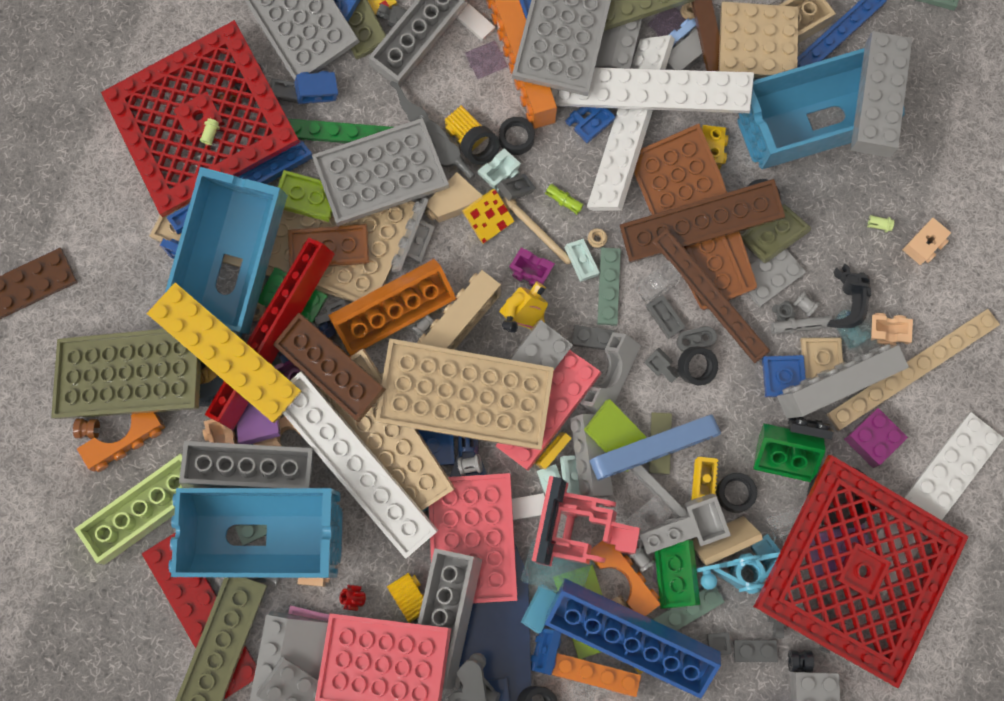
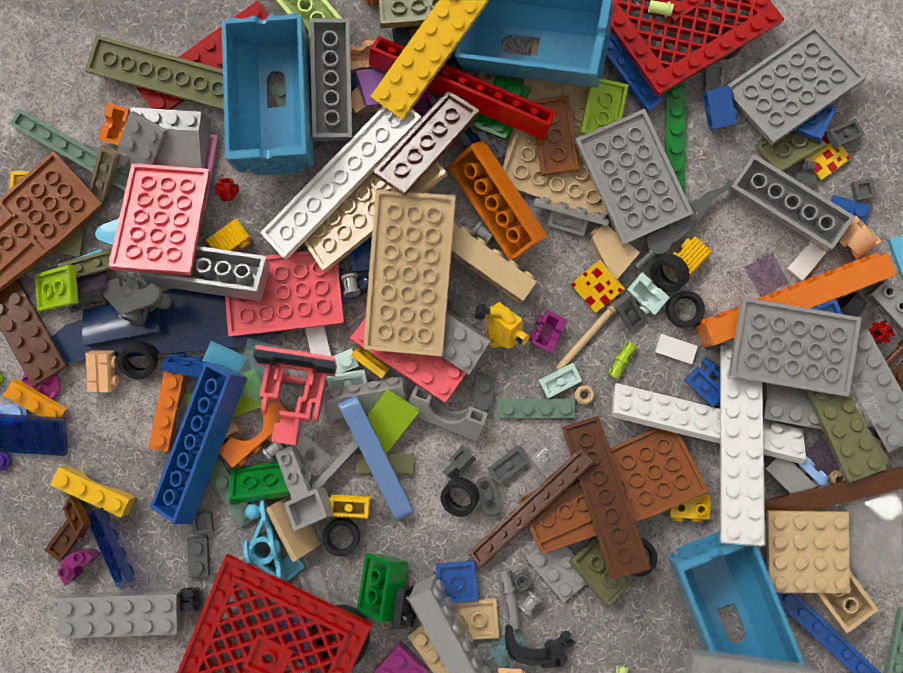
camera: 90 degrees right, 10 degrees up
(555, 148) = (676, 349): none -> white tile

